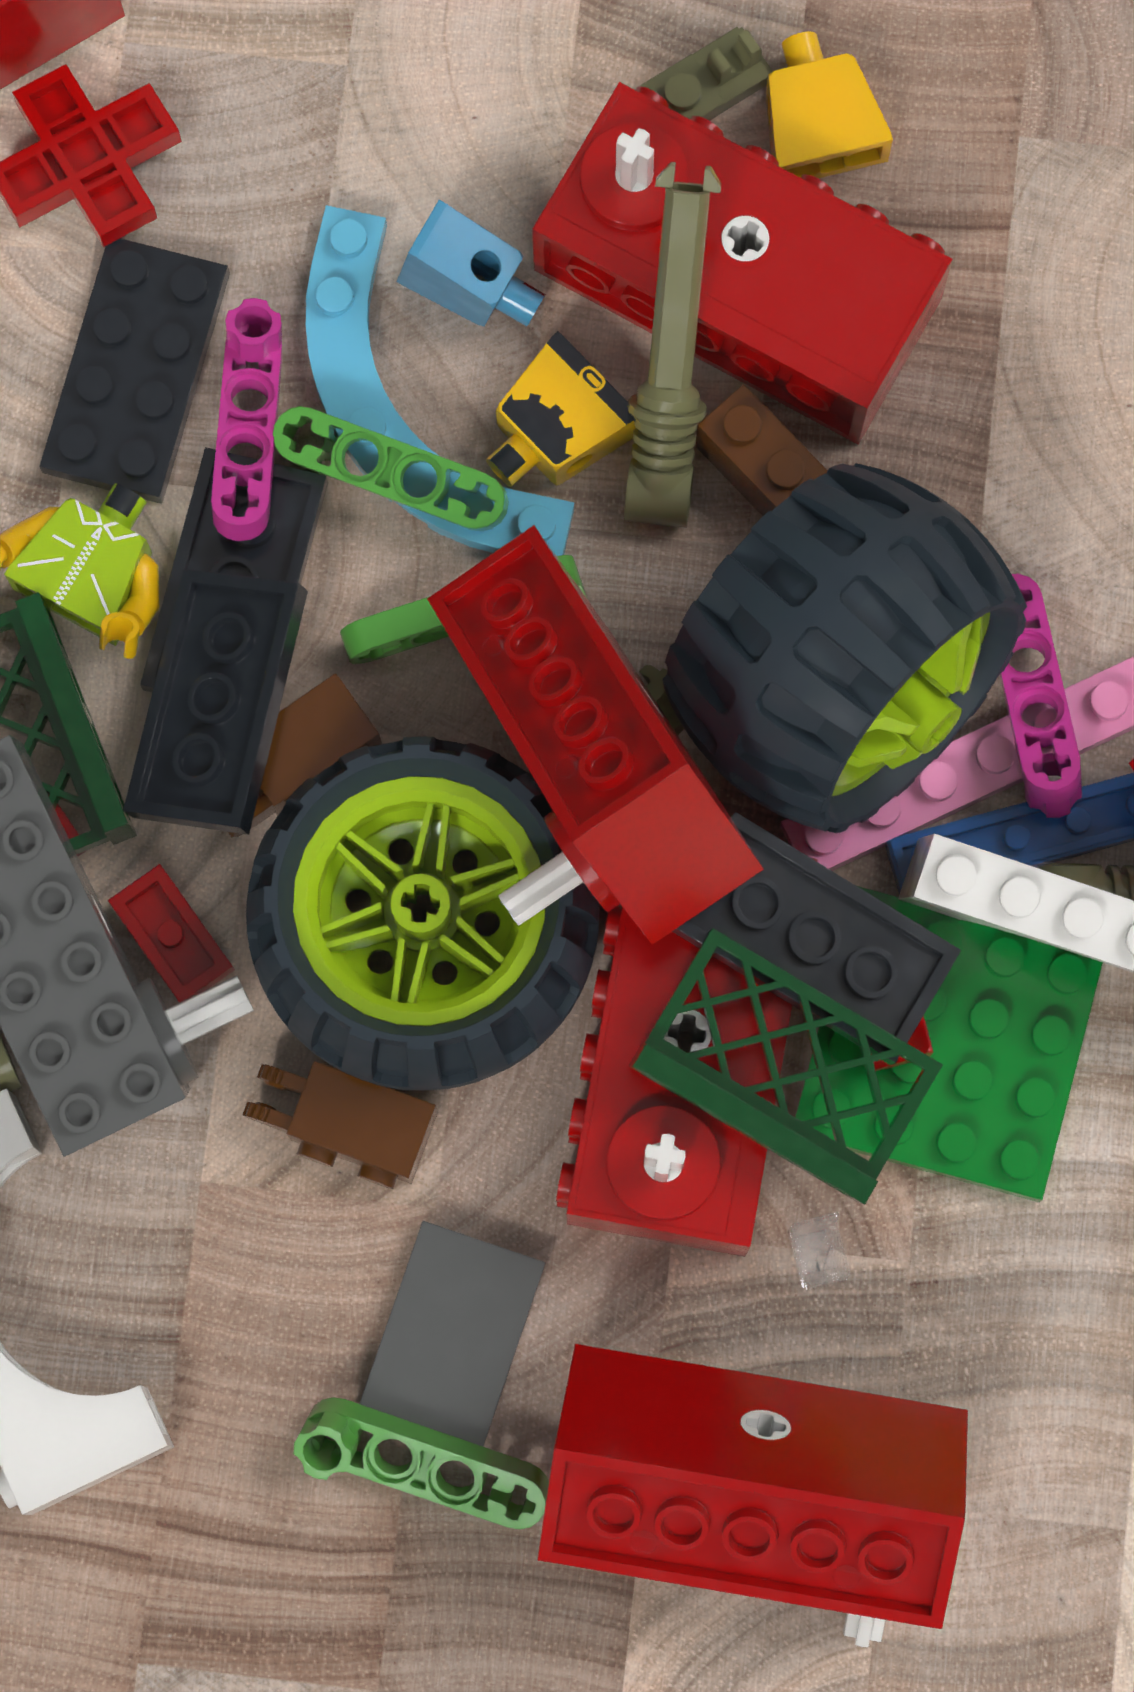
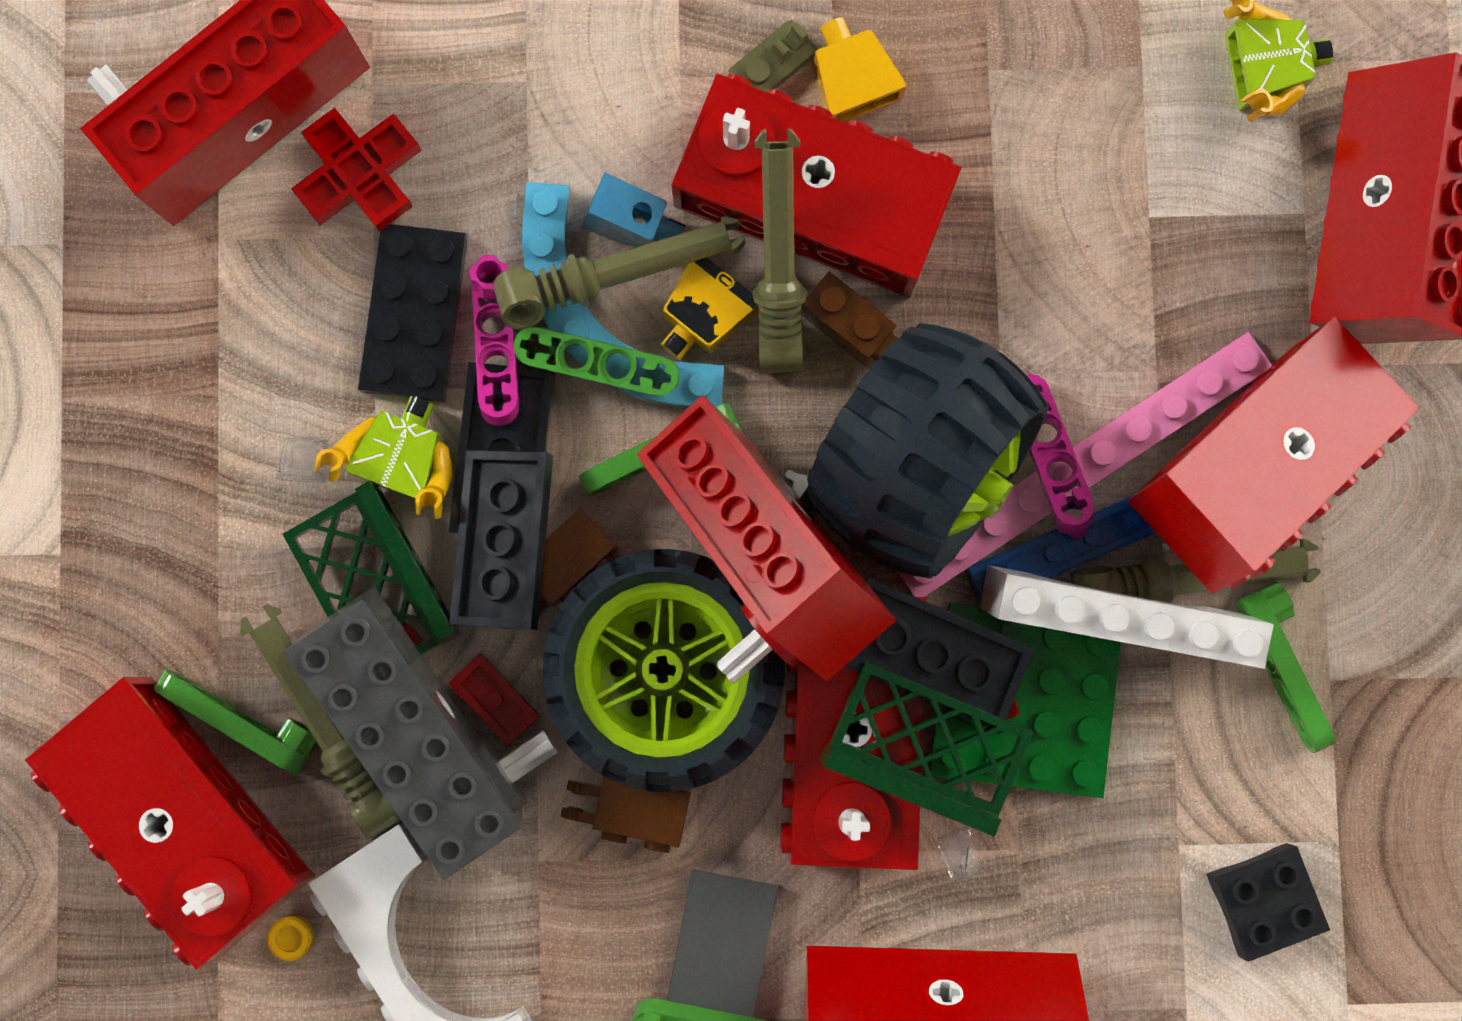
camera: 10 degrees left, 5 degrees up
(299, 360) = (525, 296): none -> olive piece

